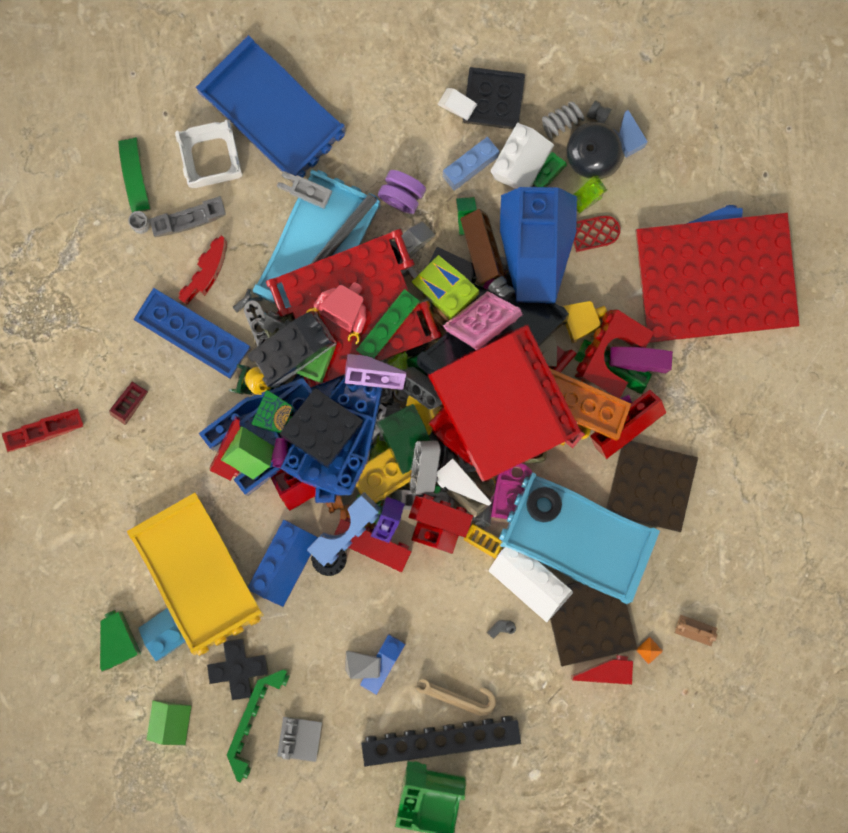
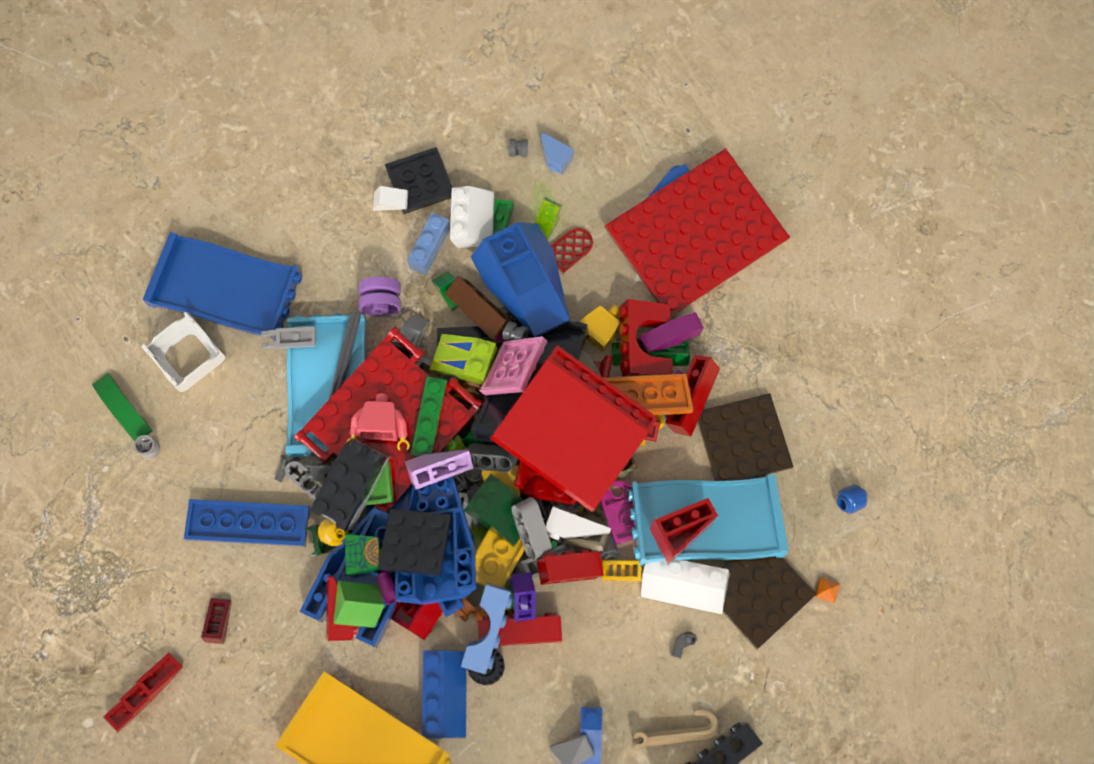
camera: 30 degrees left, 10 degrees down
(189, 218) = (193, 420): flat silver slope -> none
(211, 265) = (235, 453): red slope -> none
(434, 537) = (575, 591): red slope -> none
(544, 492) = (654, 493): black tyre -> none
(551, 535) = (682, 527): none -> red wedge
(561, 118) = (488, 166): light grey piece -> none
(607, 150) = (542, 184): black cylinder -> none
(610, 671) = (803, 629): red slope -> none
(696, 630) = (858, 548): medium nougat hinge -> none
(715, 586) = (852, 499): none -> blue head

